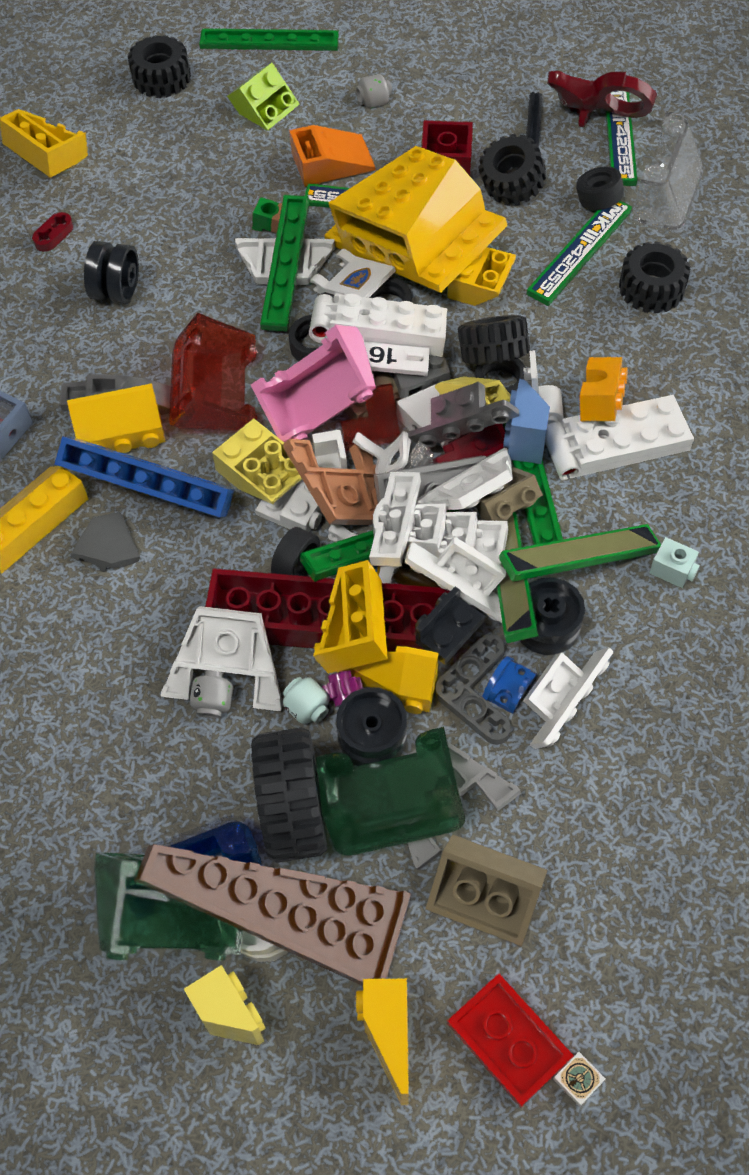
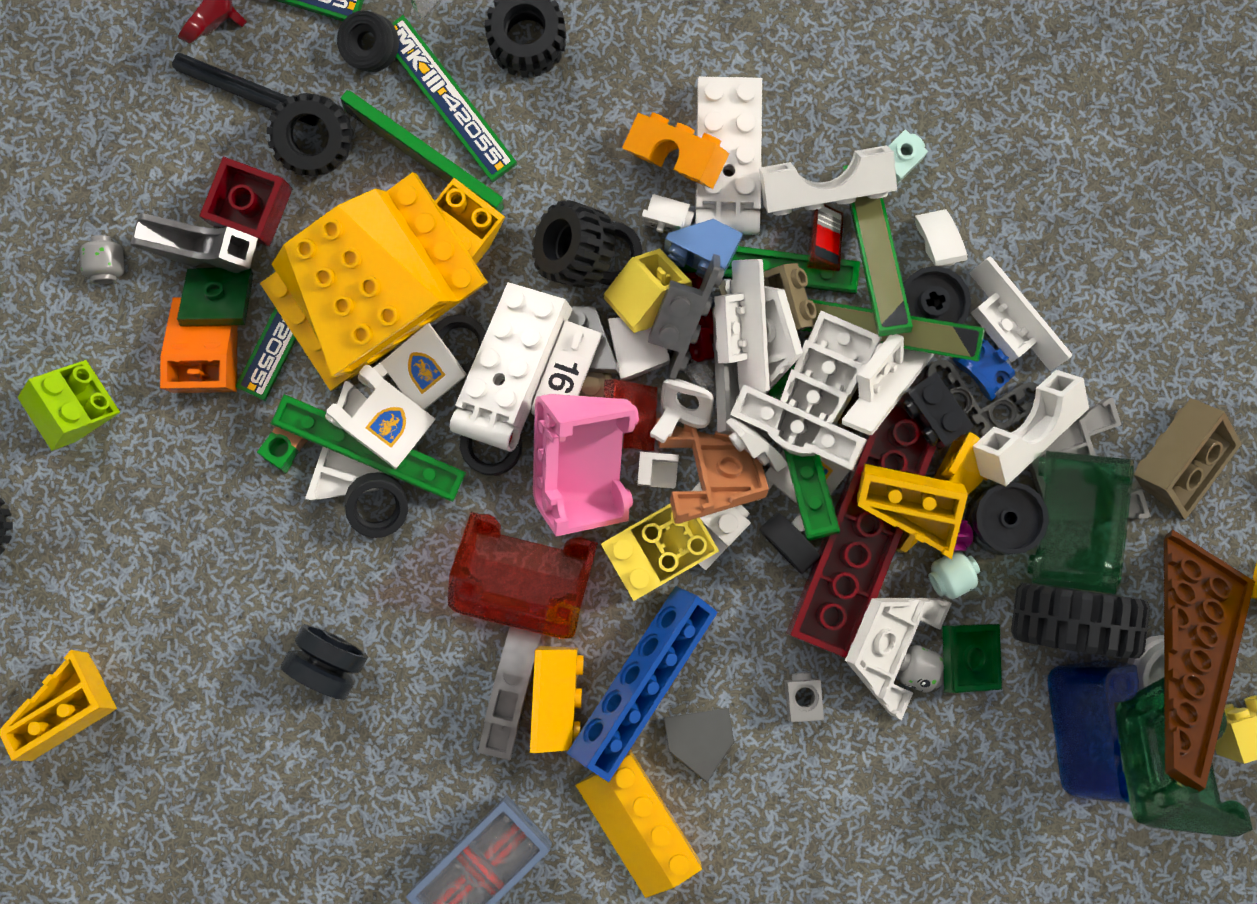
camera: 75 degrees left, 25 degrees up
(50, 230) = (207, 726): dark red beam -> none
(158, 598) = (811, 711): none -> light grey brick
(228, 733) = (972, 658): none -> dark green plate
(230, 265) = (380, 528): none -> black tyre
(309, 263) = (385, 422): none -> white flag
(367, 150) = (215, 297): none -> dark green plate
(372, 491) = (755, 444): none -> white slope
(402, 122) = (194, 244): none -> flat silver arch
(467, 456) = (742, 325): none -> white bracket
(495, 744) = (1055, 408): none -> white arch
(528, 243) = (416, 148): none -> green tile
(575, 520) = (825, 239): none -> slope
(613, 608) = (941, 238): none -> white slope
(644, 523) = (869, 175): none -> white arch

